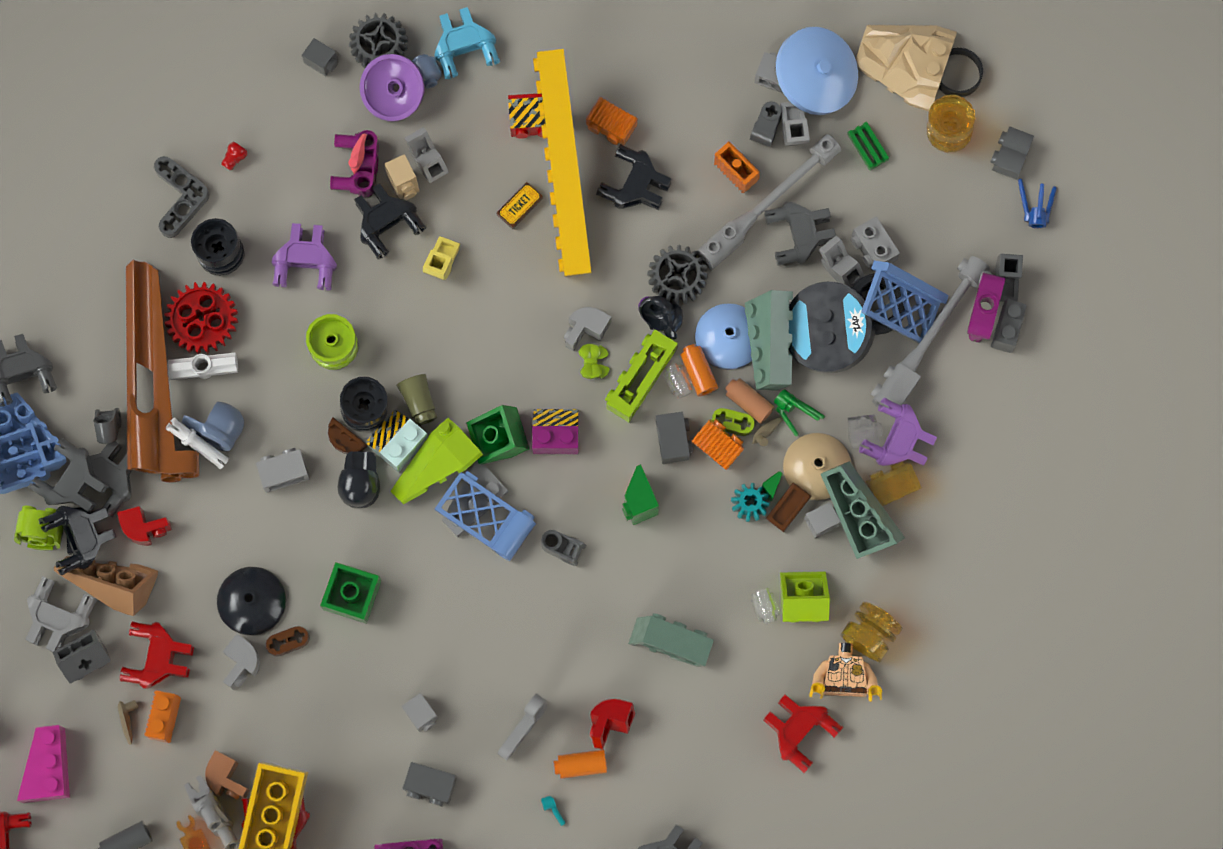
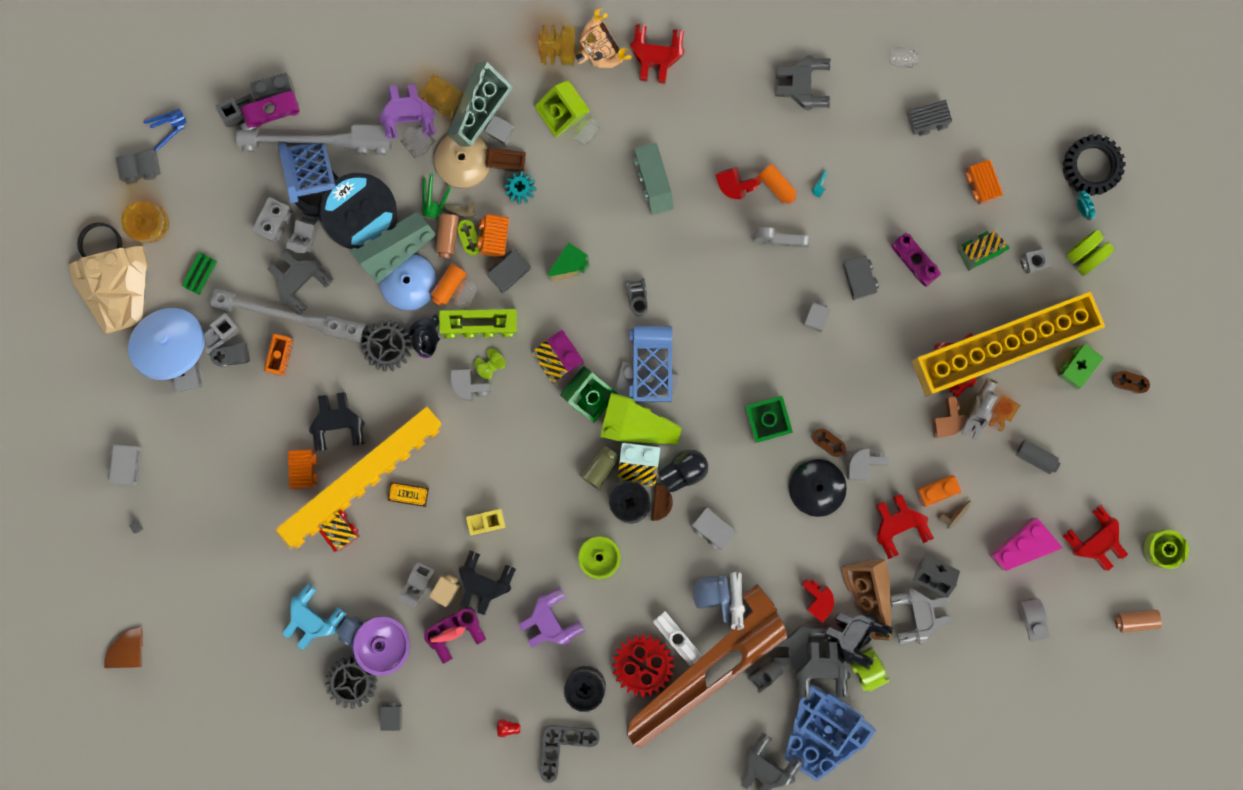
camera: 125 degrees left, 10 degrees up
(771, 485) = (497, 180): green slope -> none

